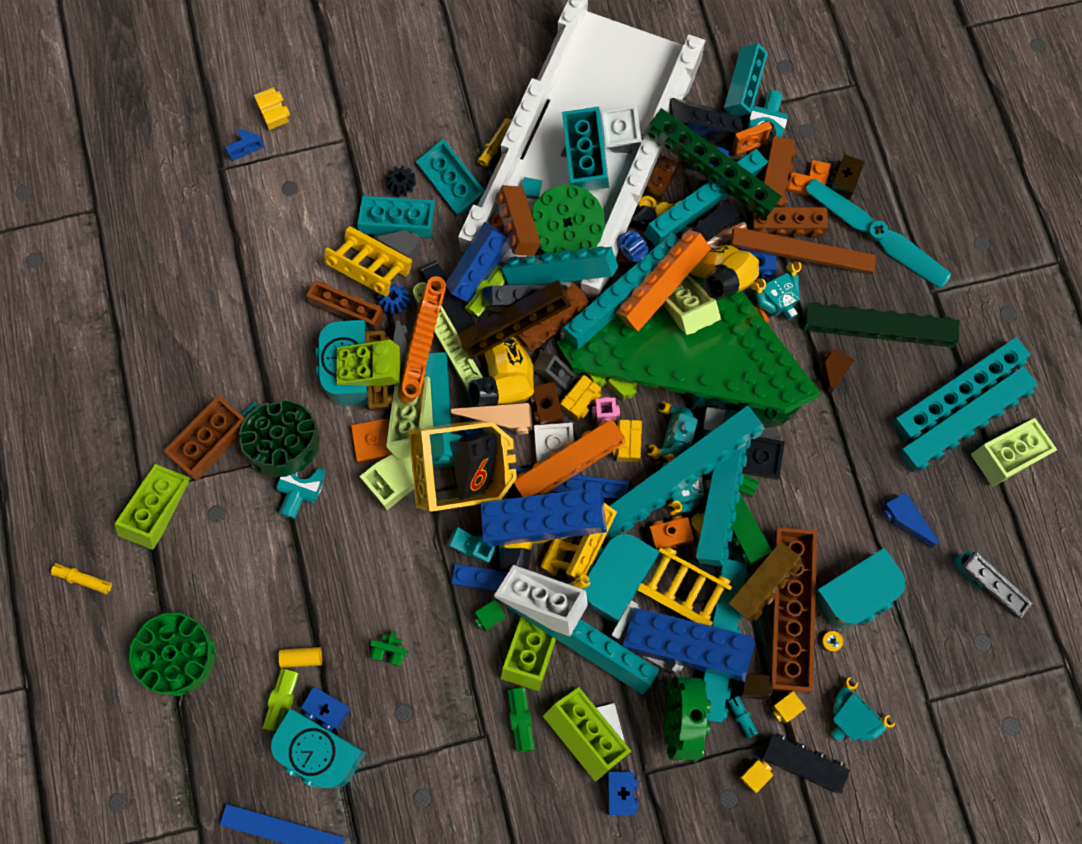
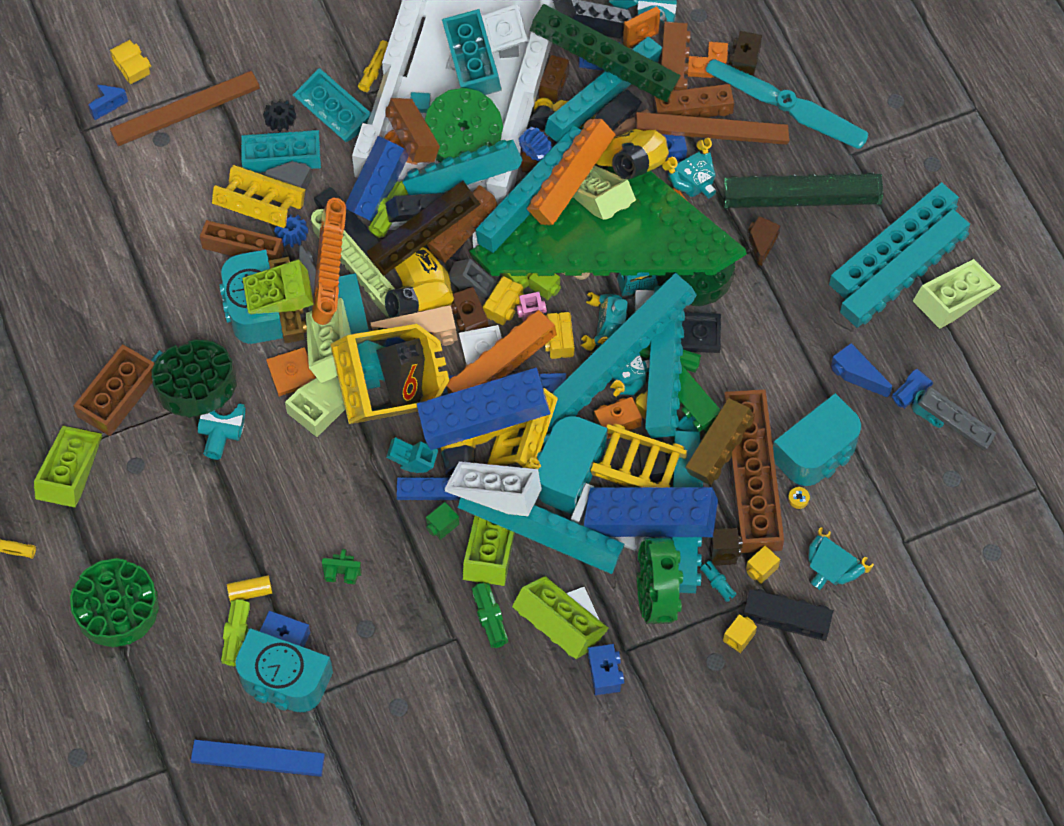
camera: 10 degrees left, 10 degrees down
(315, 161) = (184, 108): none -> dark orange tile
(958, 544) = (914, 383): none -> blue piece

